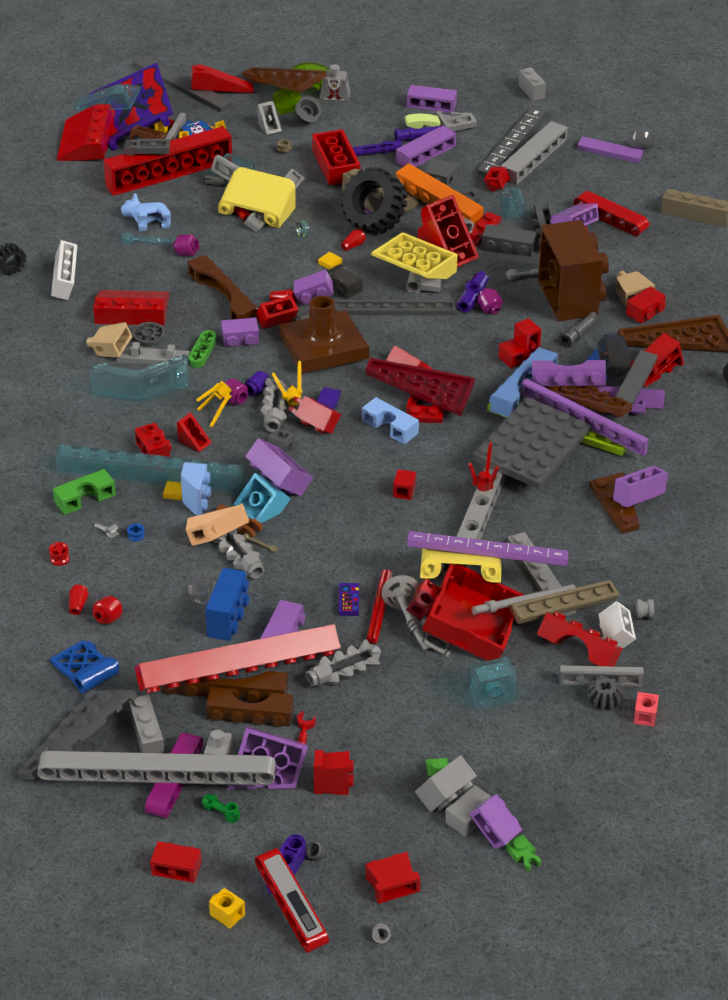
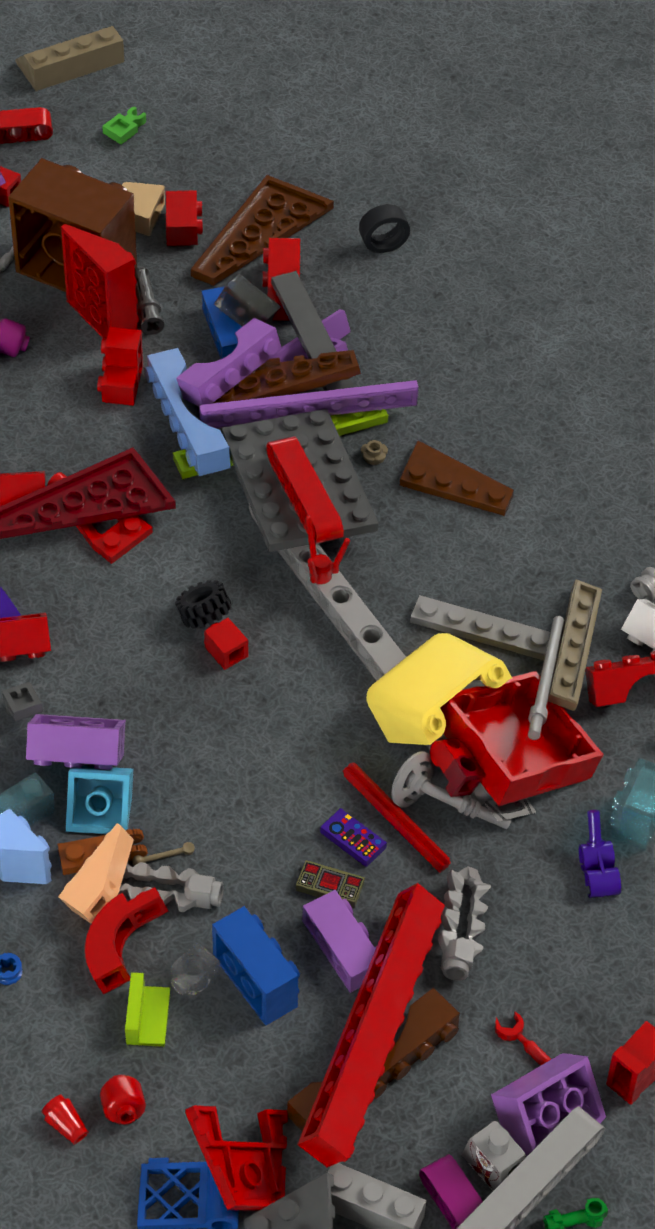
camera: 50 degrees left, 10 degrees up
(105, 665) = (244, 1172): none -> red wing
(163, 589) = (146, 1013): none -> lime panel
(188, 549) = (111, 930): none -> red arch
(274, 710) = (411, 1091): reddish brown arch -> none
(312, 608) = (321, 880): none -> tile
(402, 426) = (123, 568): light blue arch -> none
(415, 460) = (203, 604): none -> black tyre
(441, 692) = (599, 861): none -> dark purple beam
(487, 548) = (459, 649): medium lavender tile -> none
(518, 441) = (304, 488): none -> red beam
(551, 300) = (99, 280): none -> red slope
(595, 462) = (374, 457): none -> dark tan plate
(640, 486) = (471, 444): medium lavender brick -> none
(679, 252) = (124, 127): none -> bright green plate

